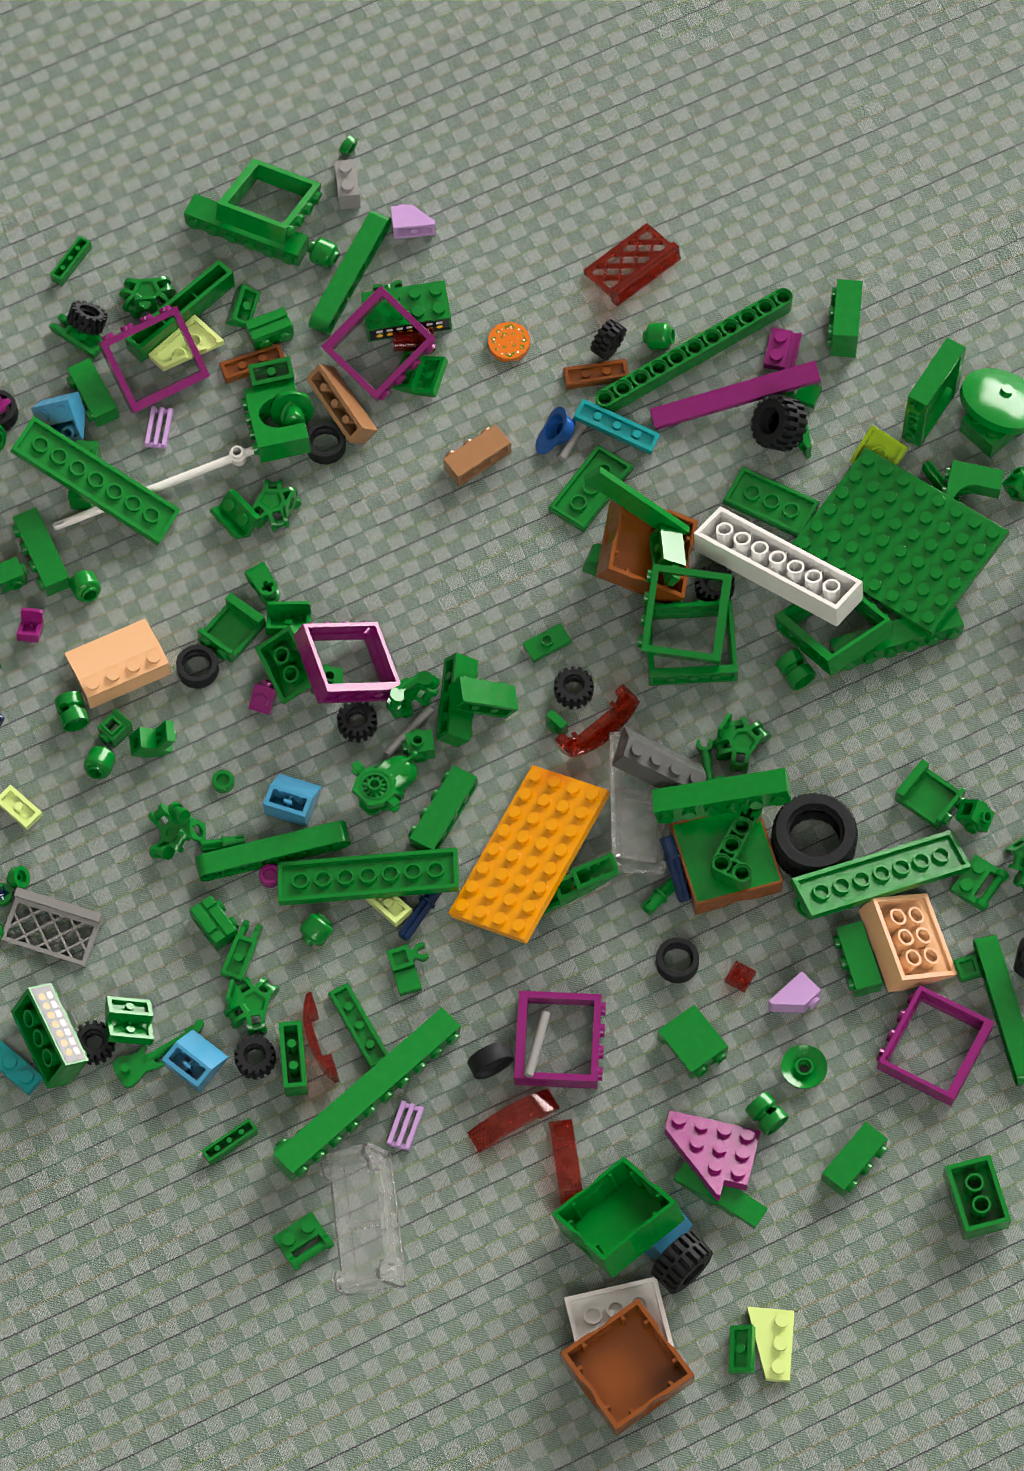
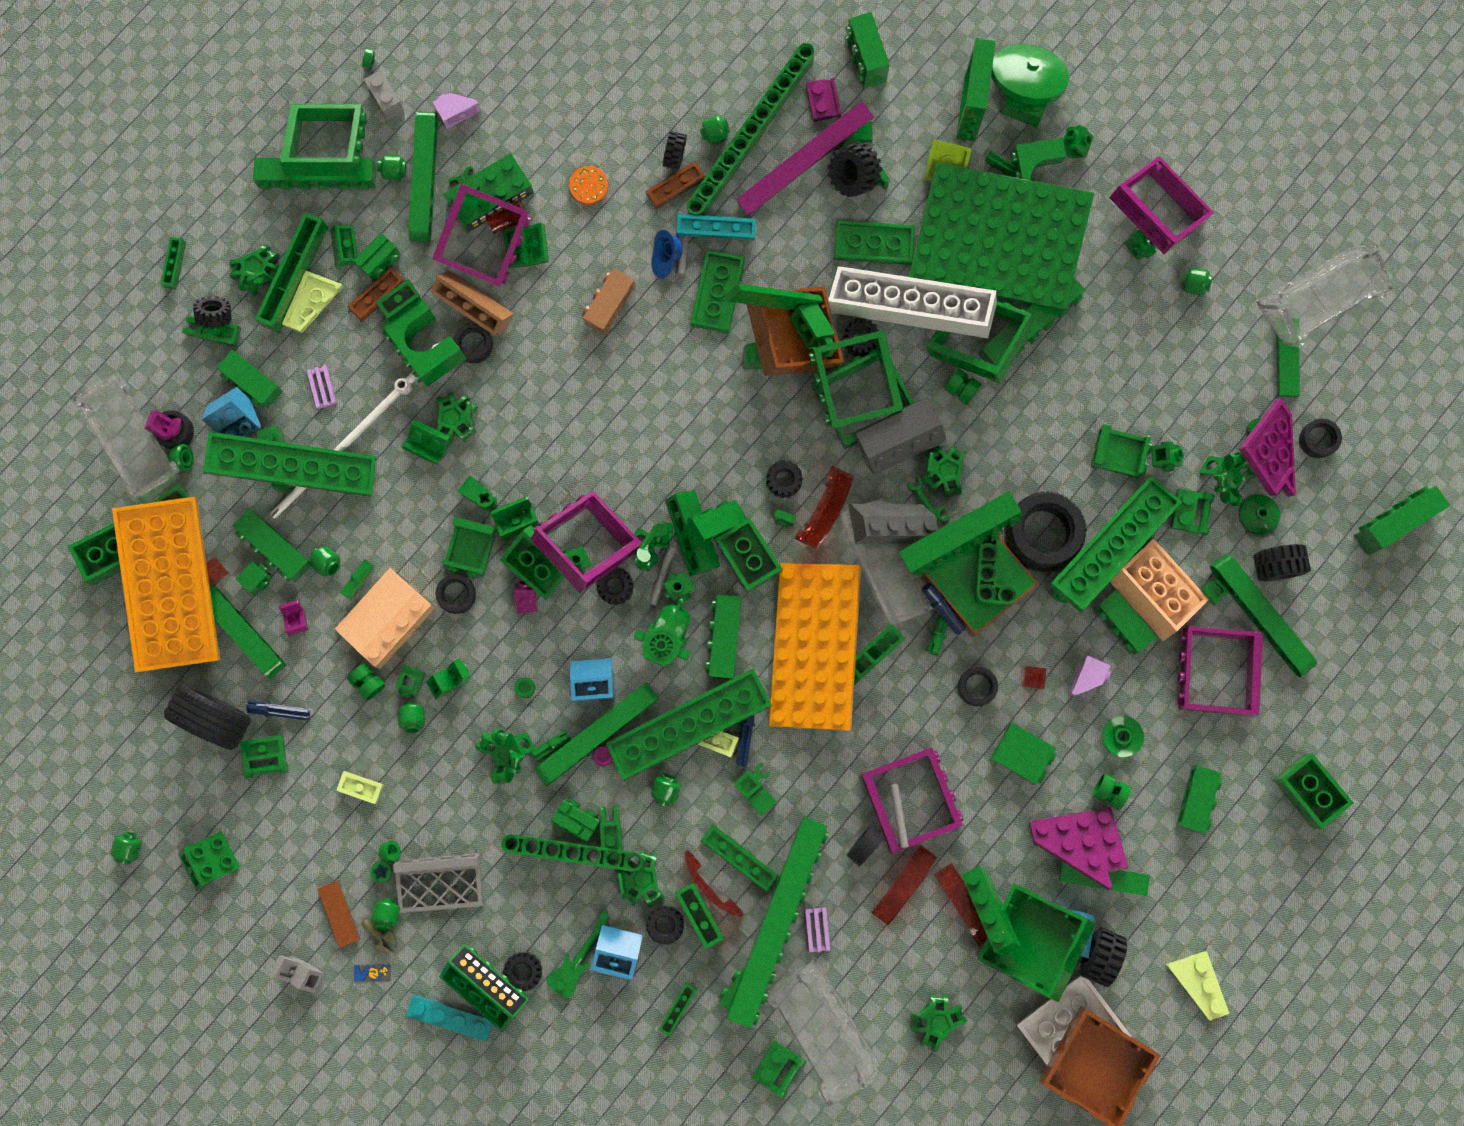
camera: 25 degrees left, 15 degrees up
(108, 615) = (357, 579): none -> green pin
(128, 330) = (316, 348): magenta window -> none
(129, 1020) = (544, 941): green slope -> none
(192, 940) = (564, 848): none -> green beam
(291, 408) = (431, 326): green plate -> none
(484, 1260) = (937, 1021): none -> green piece
(502, 742) = (748, 555): none -> green brick
(547, 643) = (743, 447): green plate -> none
(586, 1169) = (991, 911): none -> green brick
(642, 273) = (677, 73): clear red fence -> none
(708, 689) = (900, 436): none -> dark grey slope
(742, 1349) = (1180, 1005): green plate -> none

